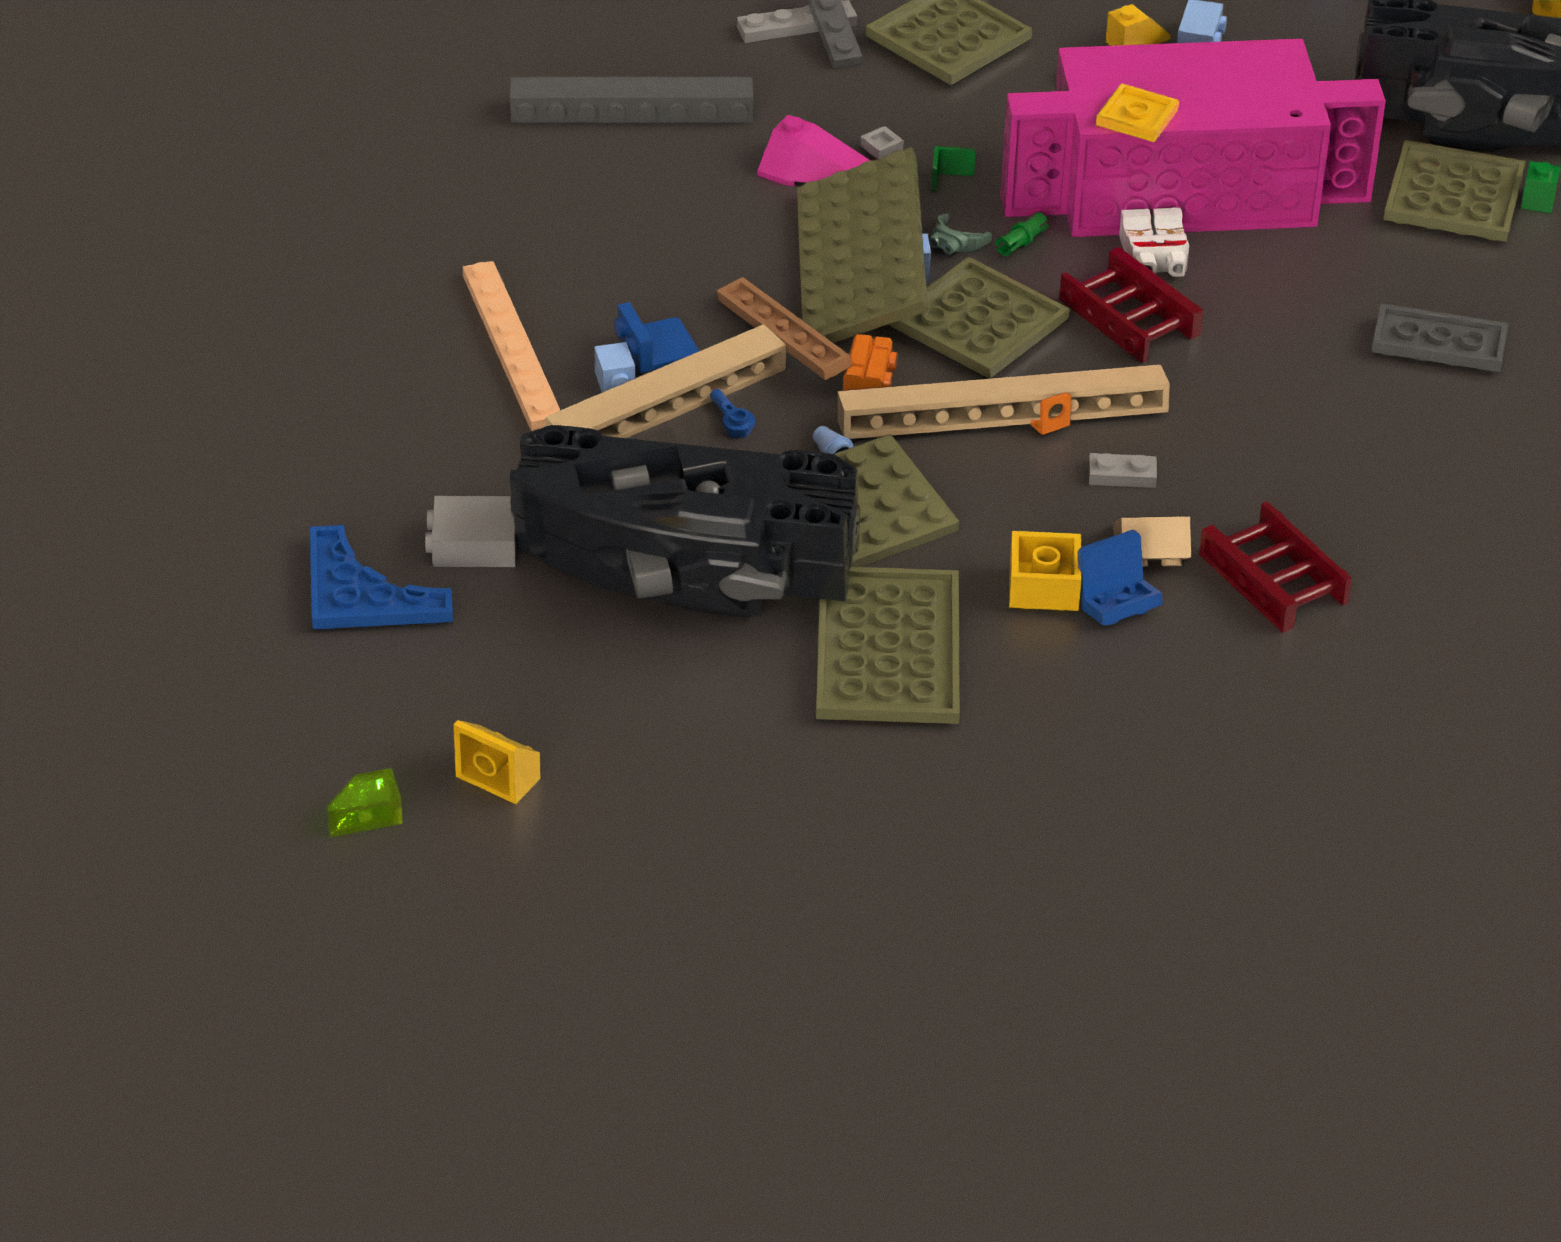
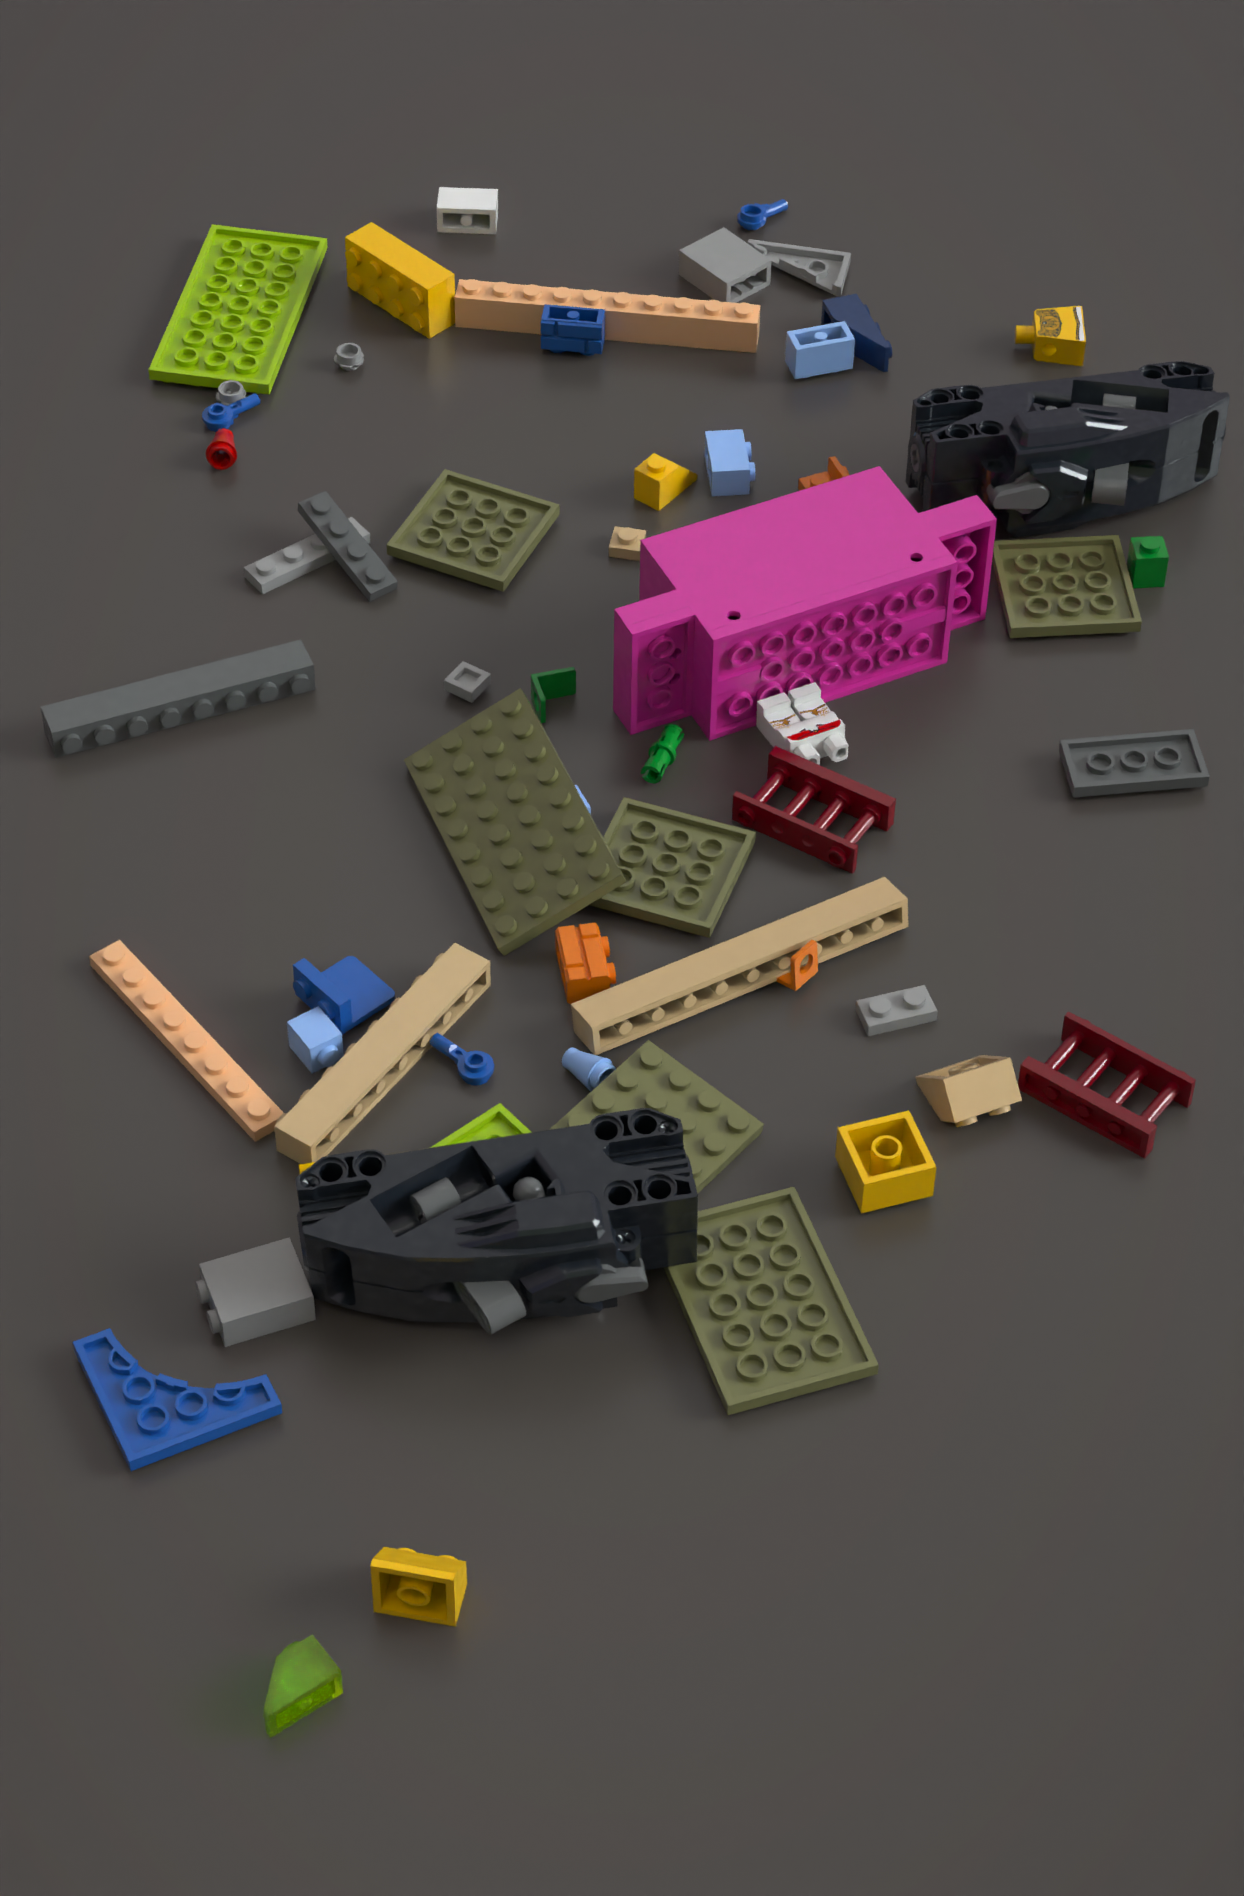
camera: 20 degrees left, 5 degrees up
(800, 339) = (503, 950): medium nougat plate -> none
(804, 153) = (400, 718): dark pink wedge -> none
(956, 241) = (594, 780): sand green helmet -> none
(1114, 579) = (963, 1158): blue bracket -> none
(1137, 112) = (761, 599): yellow tile -> none

